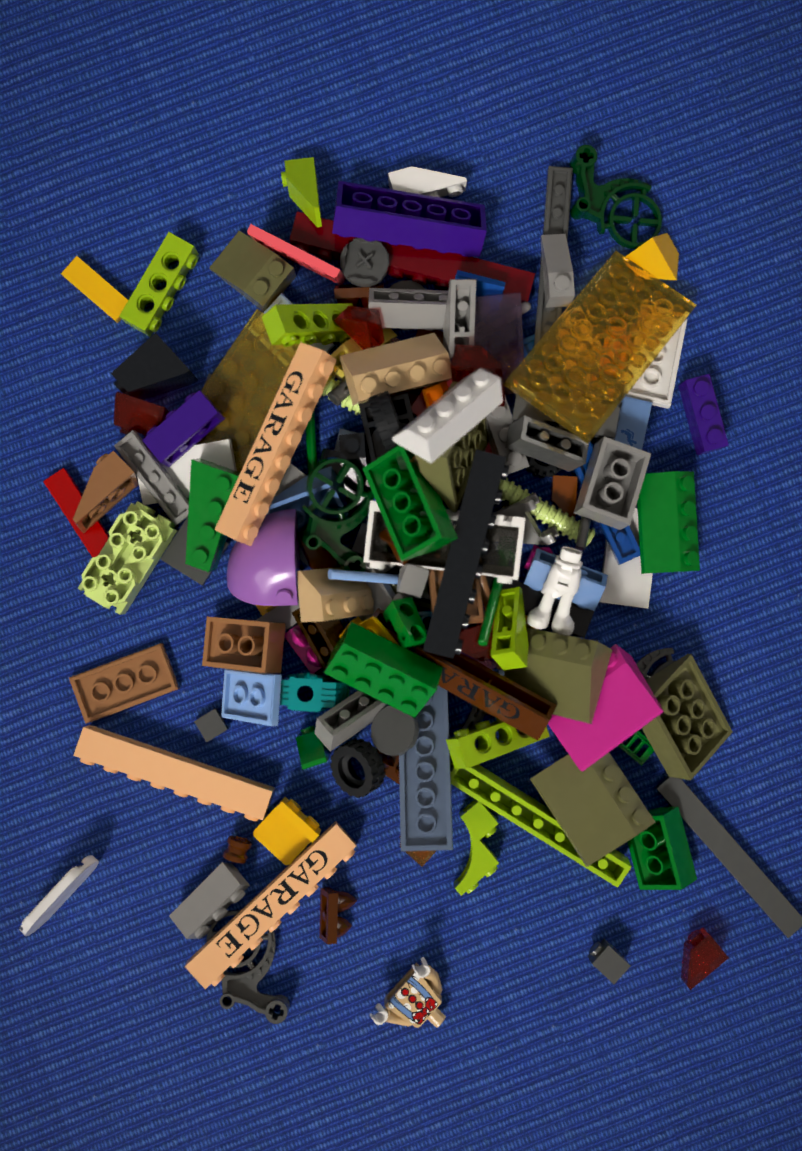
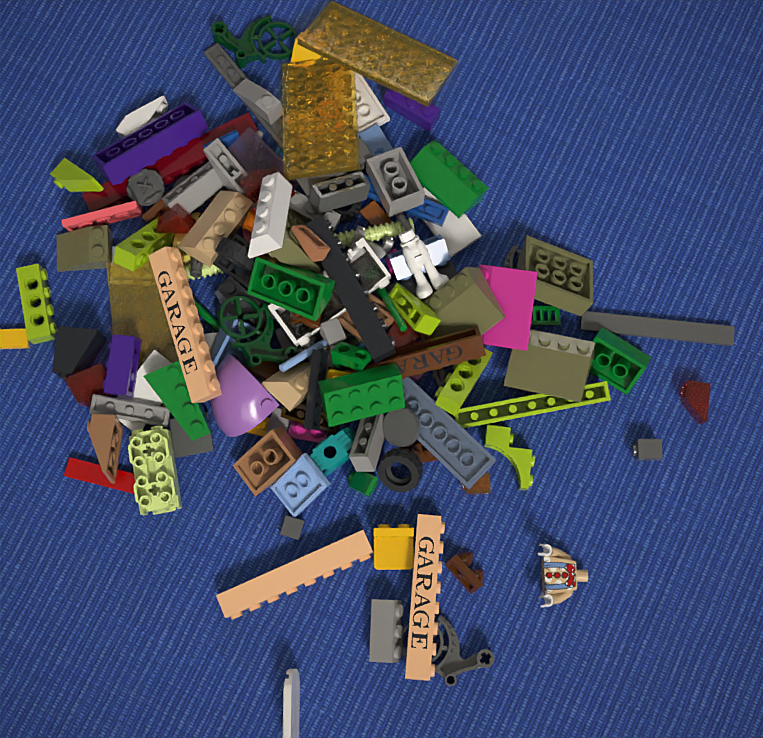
camera: 35 degrees left, 10 degrees down
(124, 683) = (217, 551): medium nougat tile -> none
(237, 849) = (374, 585): reddish brown wheel -> none
(355, 613) = (314, 404): none -> black tile
(468, 477) = (311, 243): none -> nougat slope
(721, 328) = (378, 53): none -> clear yellow plate

